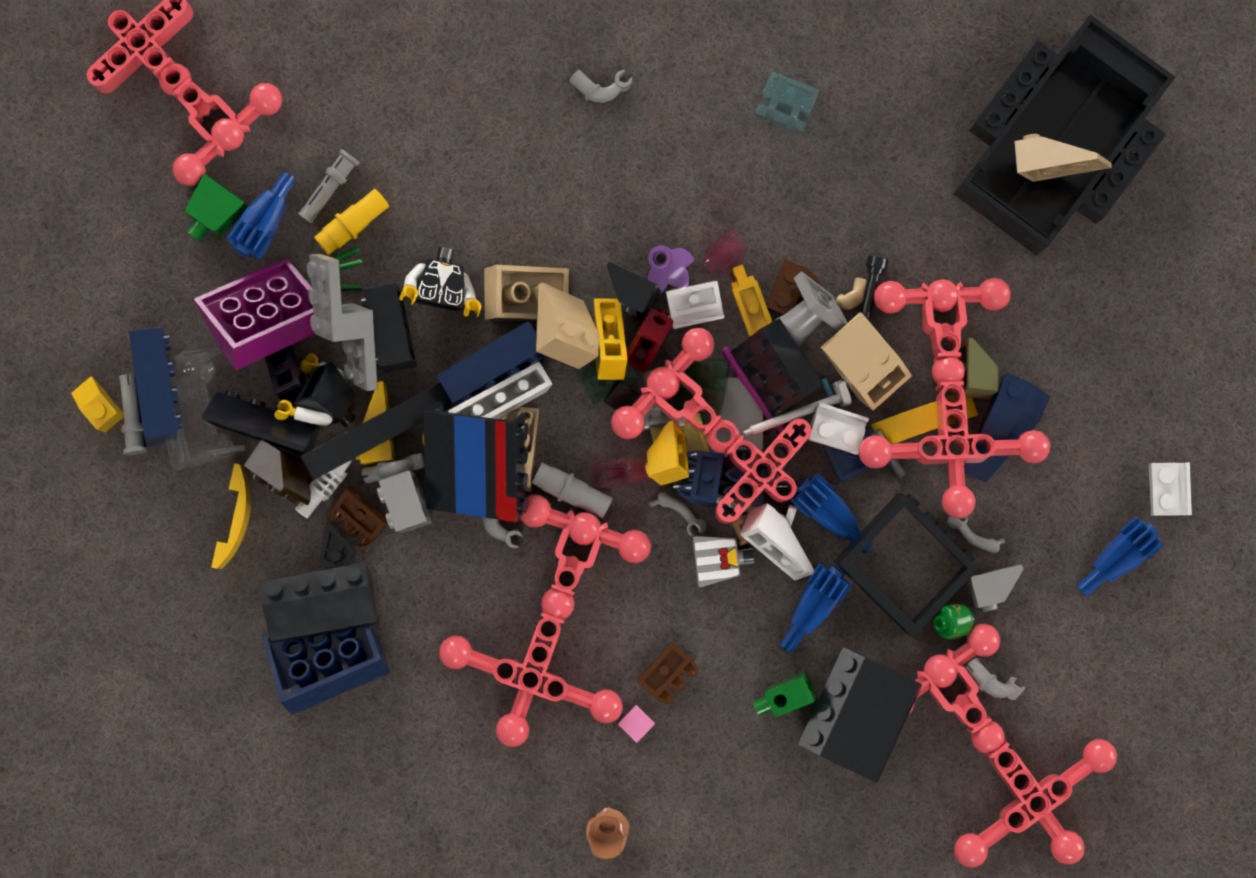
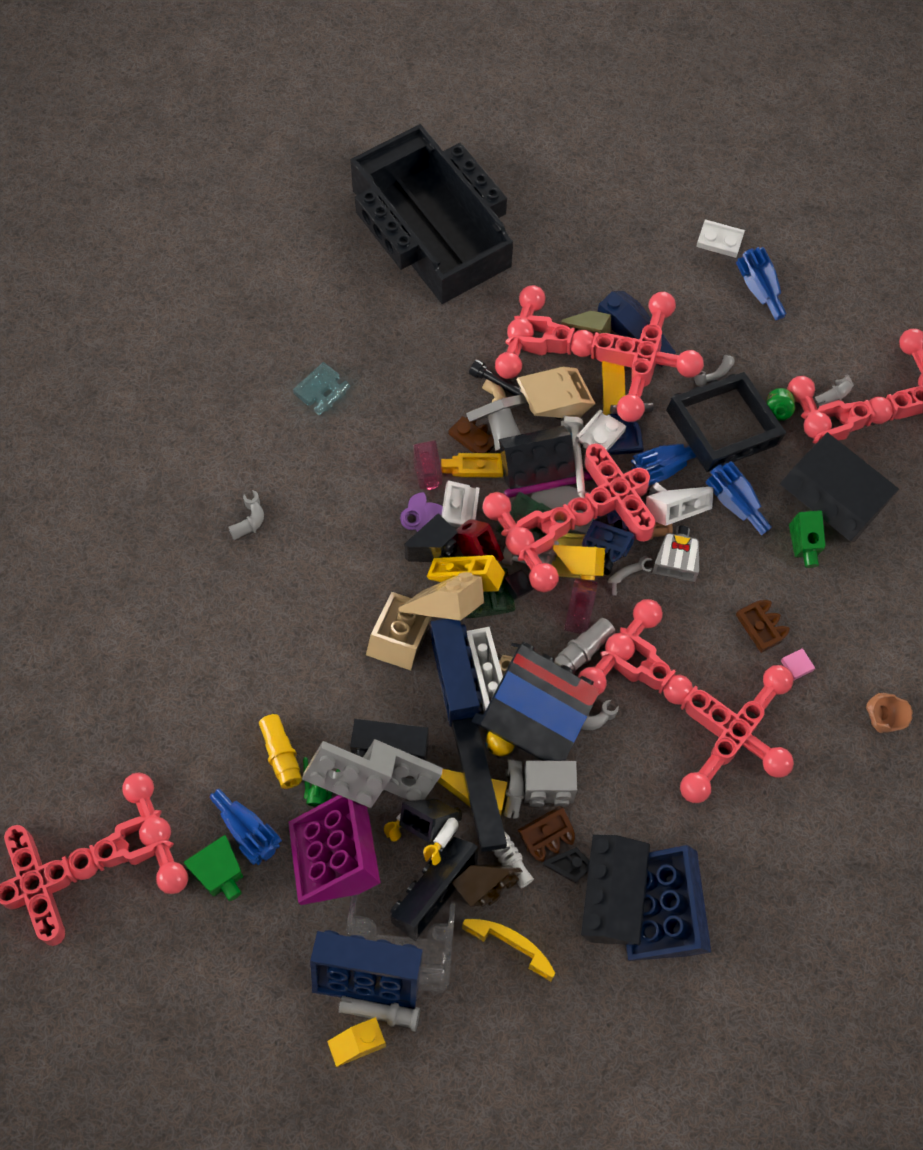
camera: 70 degrees left, 20 degrees down
(285, 374) = (400, 851): black slope -> none
(335, 176) = (233, 753): light grey pin -> none
(441, 285) = (368, 690): torso -> none
(993, 586) = (761, 369): light grey slope -> none
(1047, 159) = (449, 212): tan slope -> none

